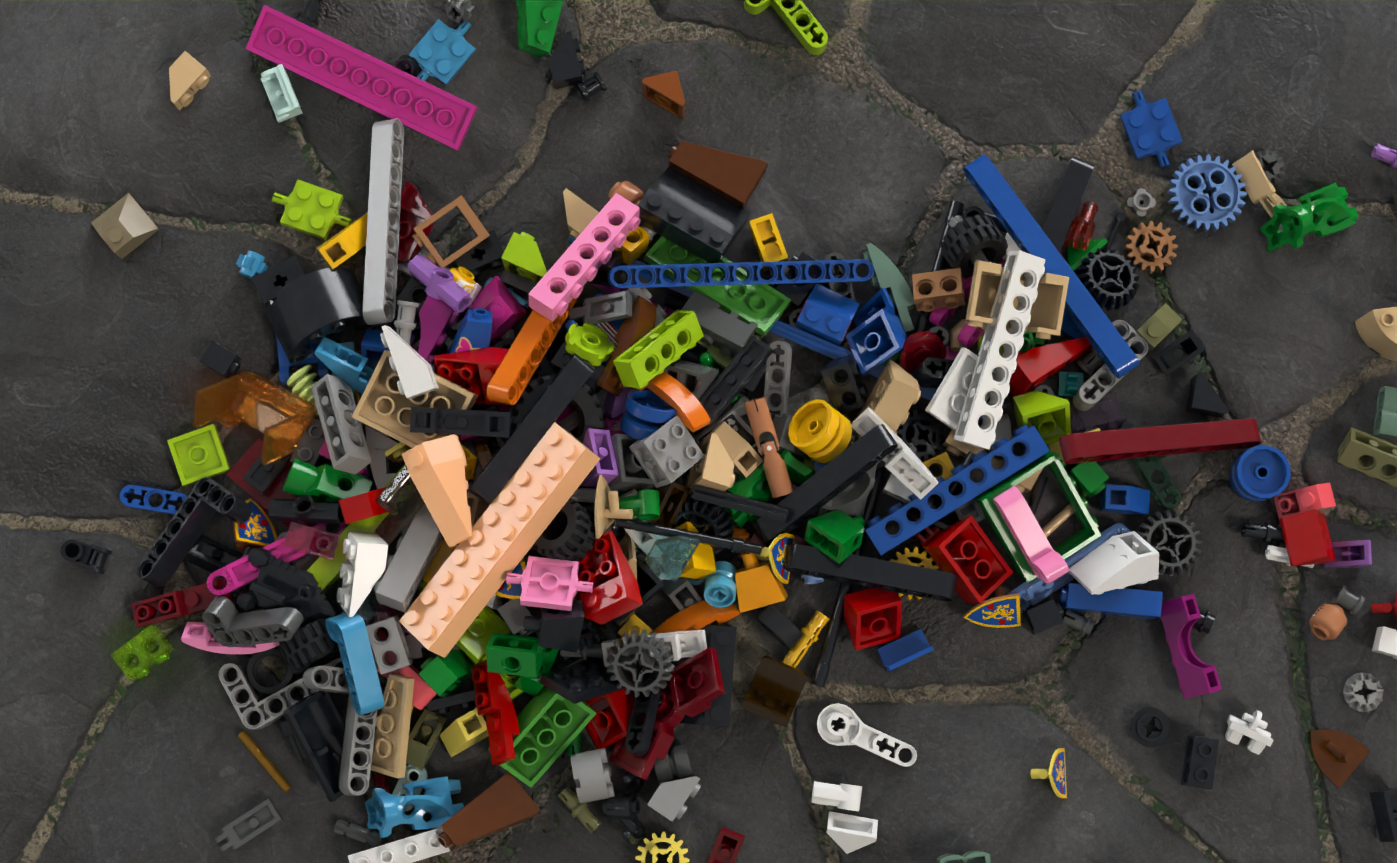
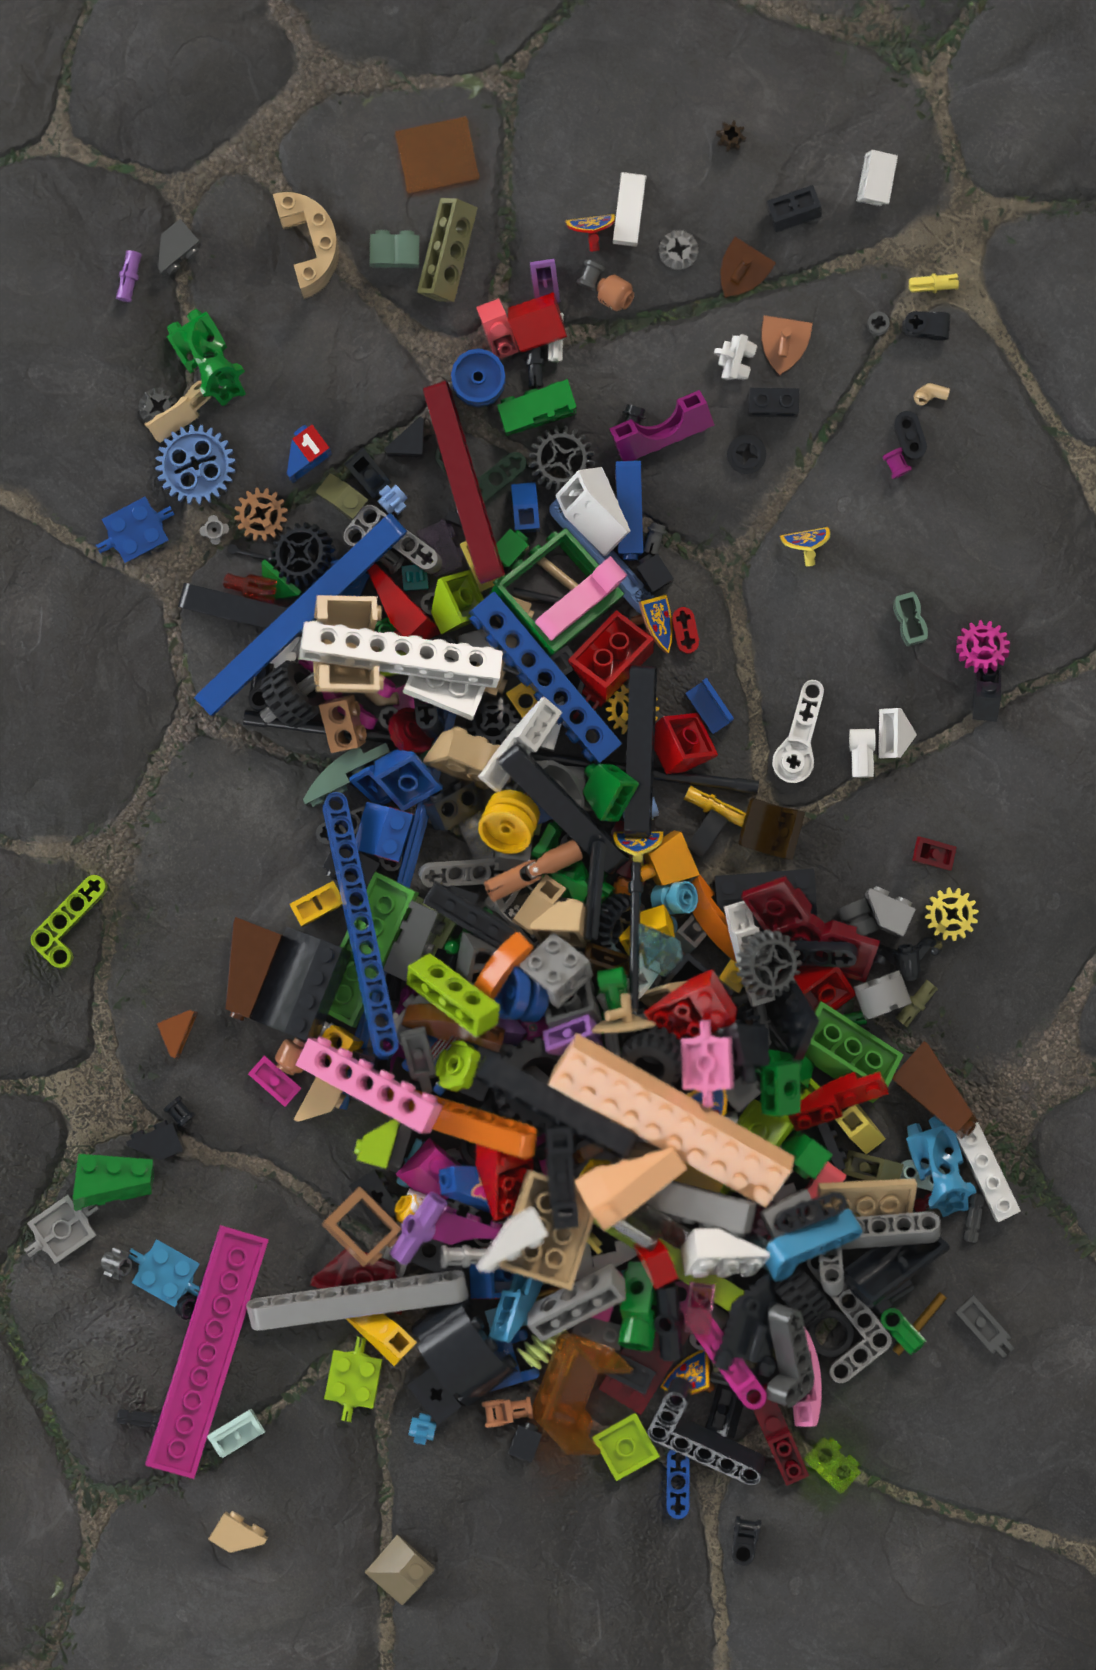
camera: 95 degrees left, 5 degrees up
(253, 345) = (505, 1411): none -> nougat connector
(257, 743) = (904, 1332): none -> green piece
(395, 682) = (795, 1224): none -> black beam
(604, 178) = (274, 1081): none -> dark pink plate
(983, 632) = (691, 629): none -> red beam
(1149, 373) = (392, 499): none -> light blue gear
(1206, 295) = (306, 452): none -> slope
(1222, 526) = (537, 408): none -> green wedge
(1258, 784) = (784, 341): none -> nougat shield

